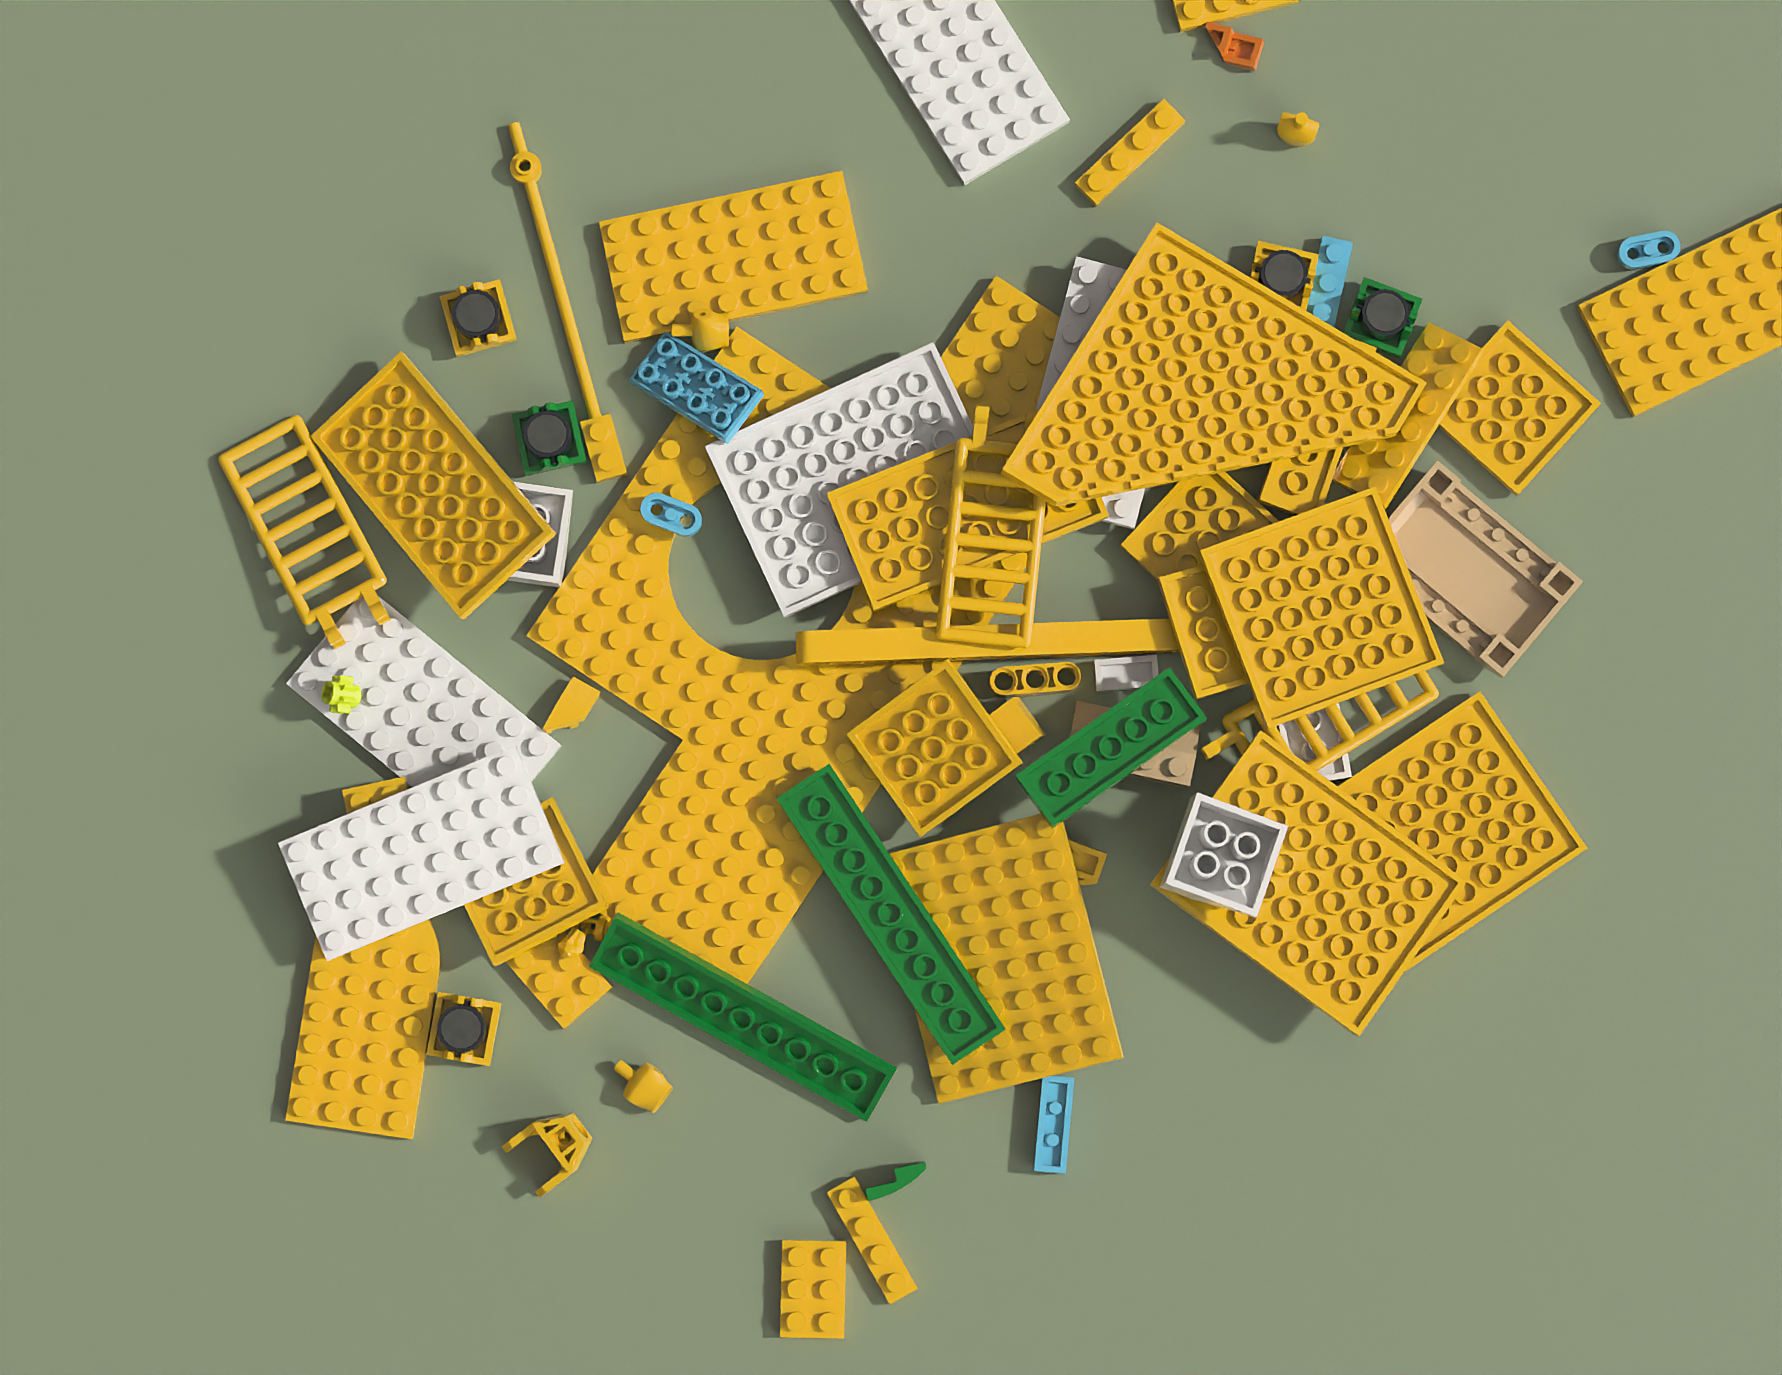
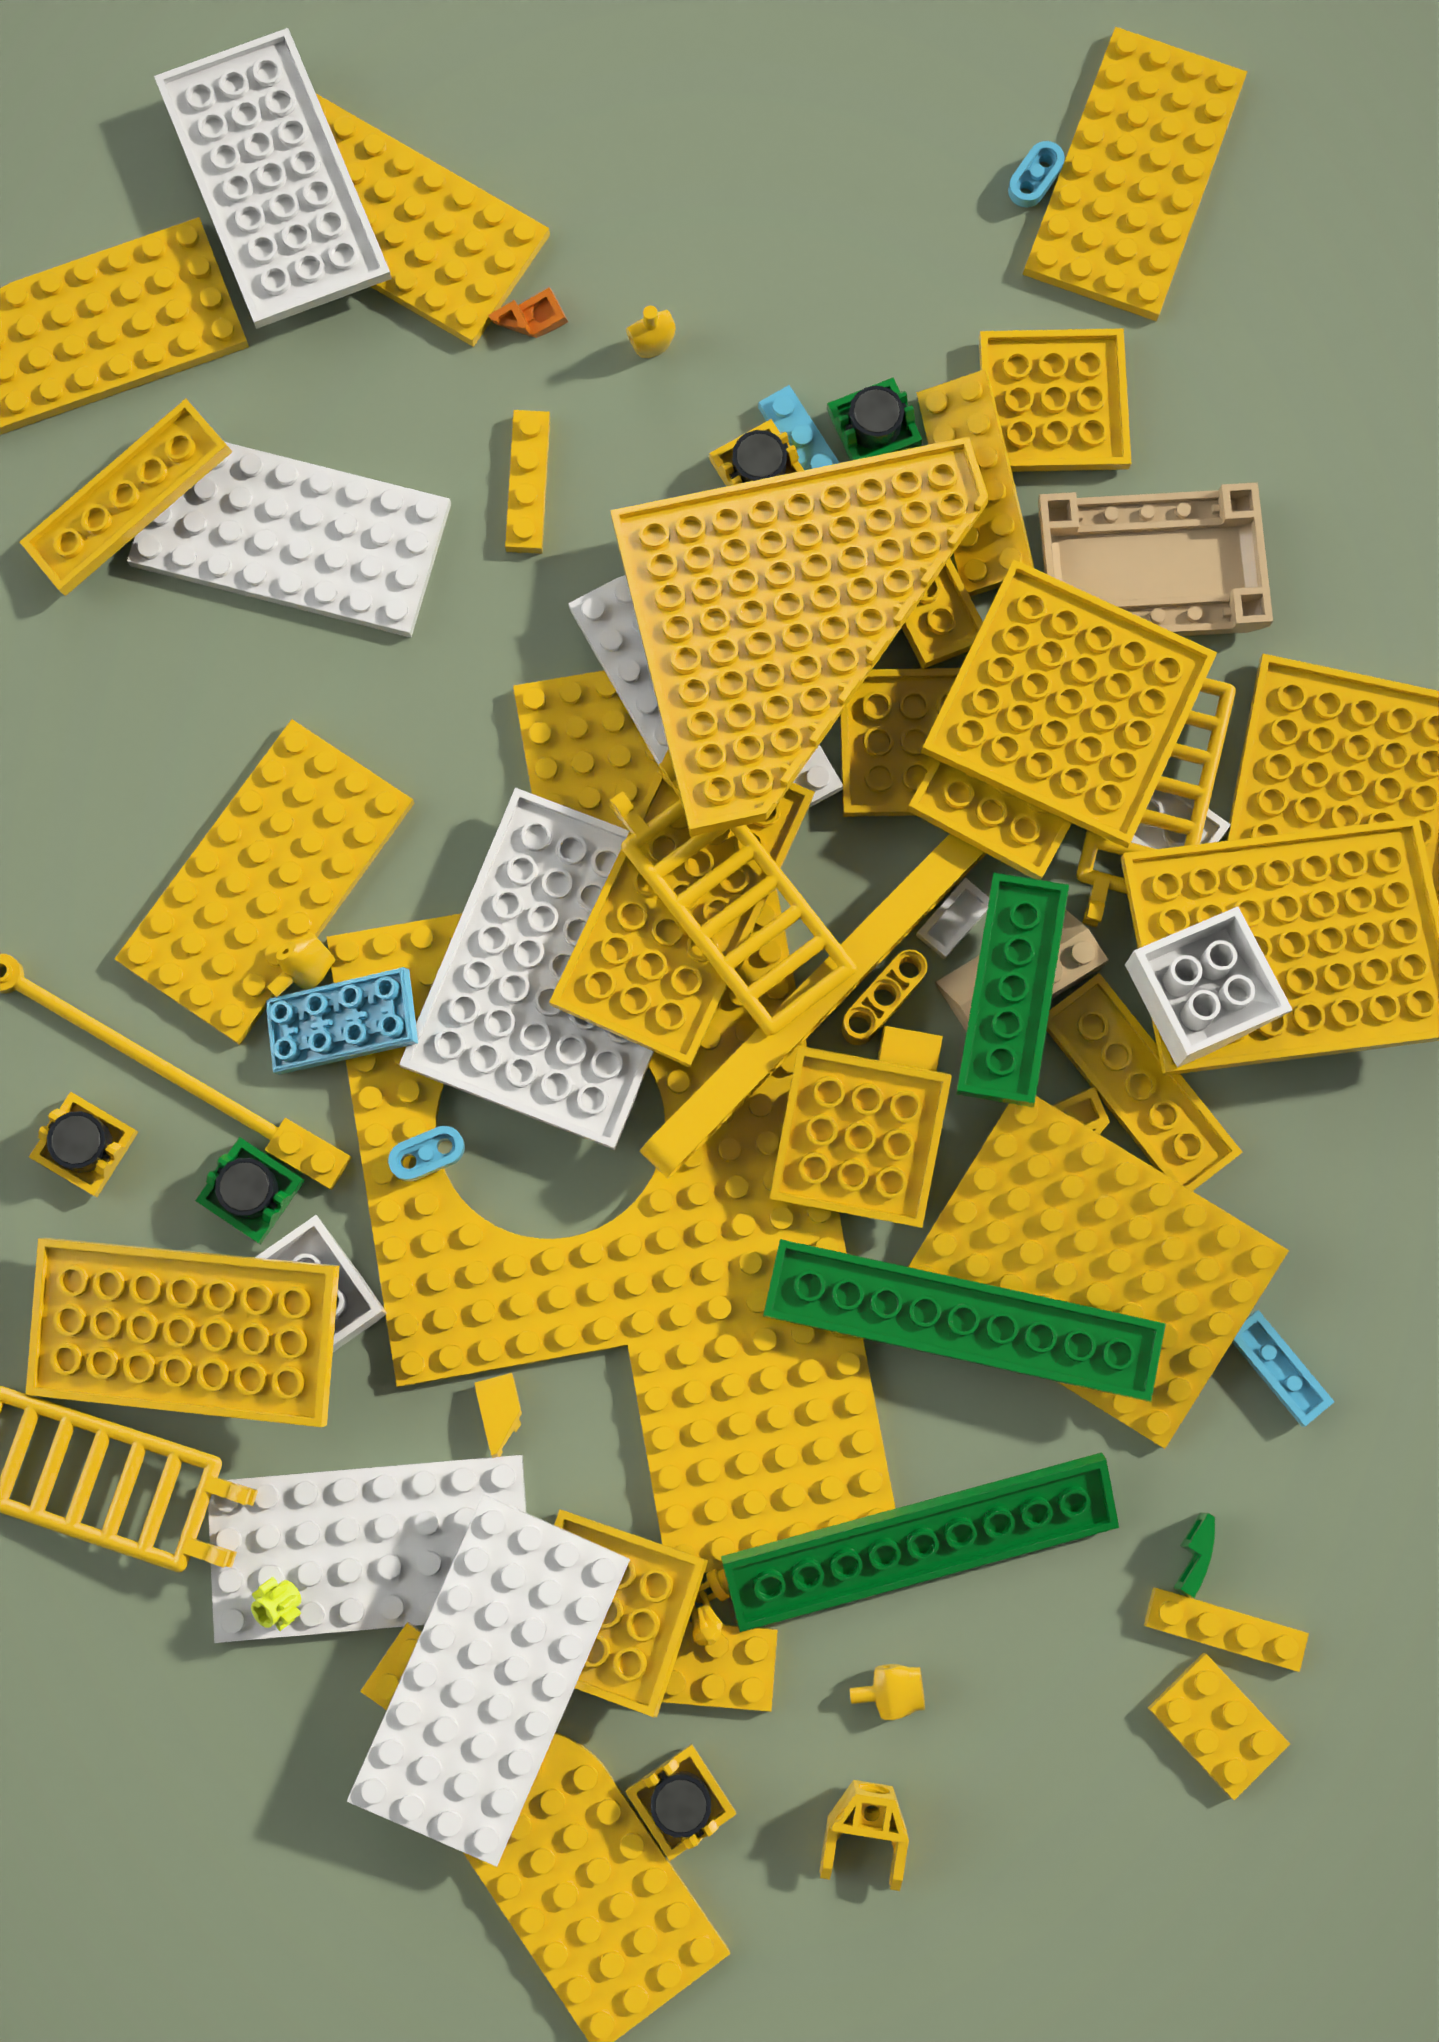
camera: 45 degrees left, 5 degrees down
(1131, 908) = (1125, 1069): none -> yellow plate

